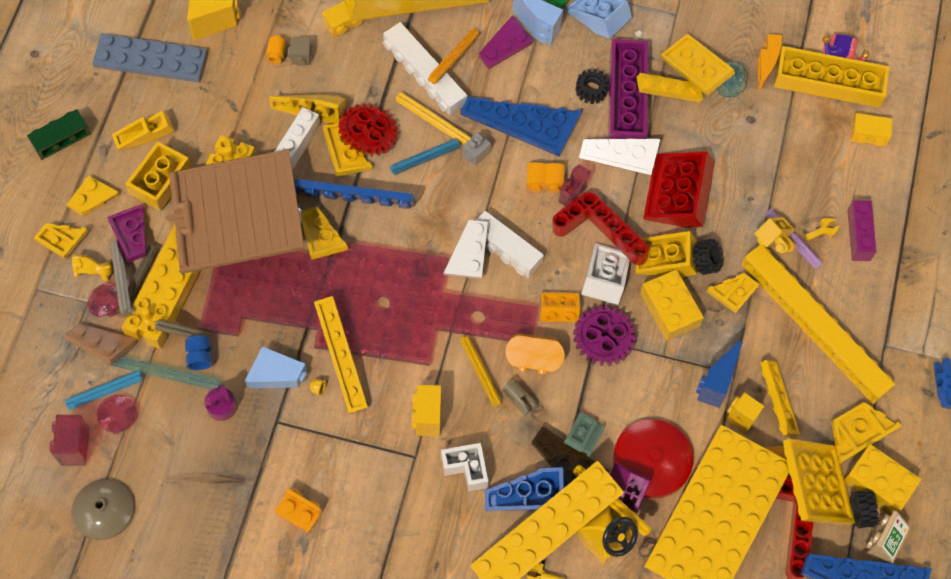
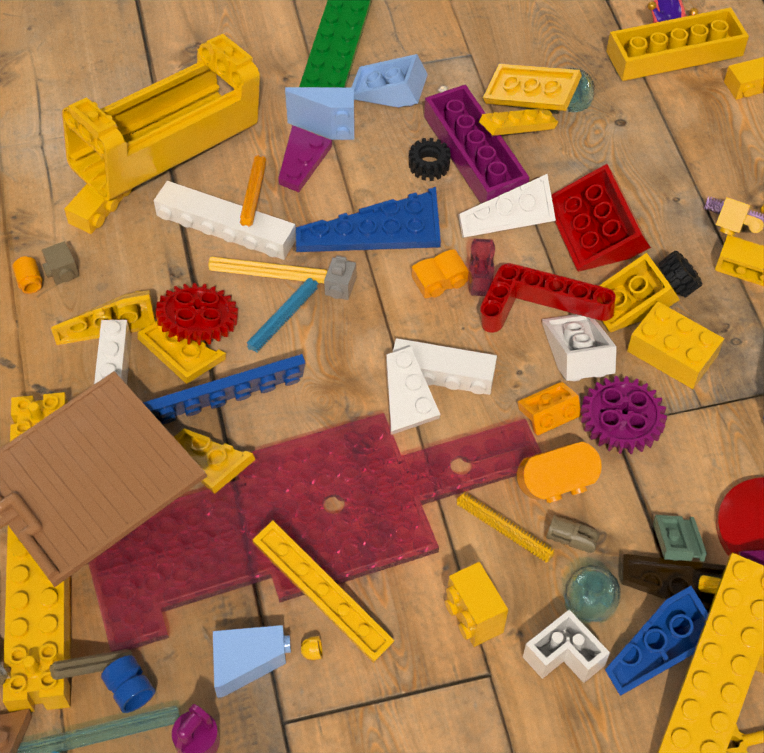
camera: 25 degrees left, 10 degrees down
(507, 441) = (592, 594): none -> clear light blue cylinder
(734, 292) = (731, 300): yellow wing -> none
(767, 58) = (599, 54): light orange slope -> none

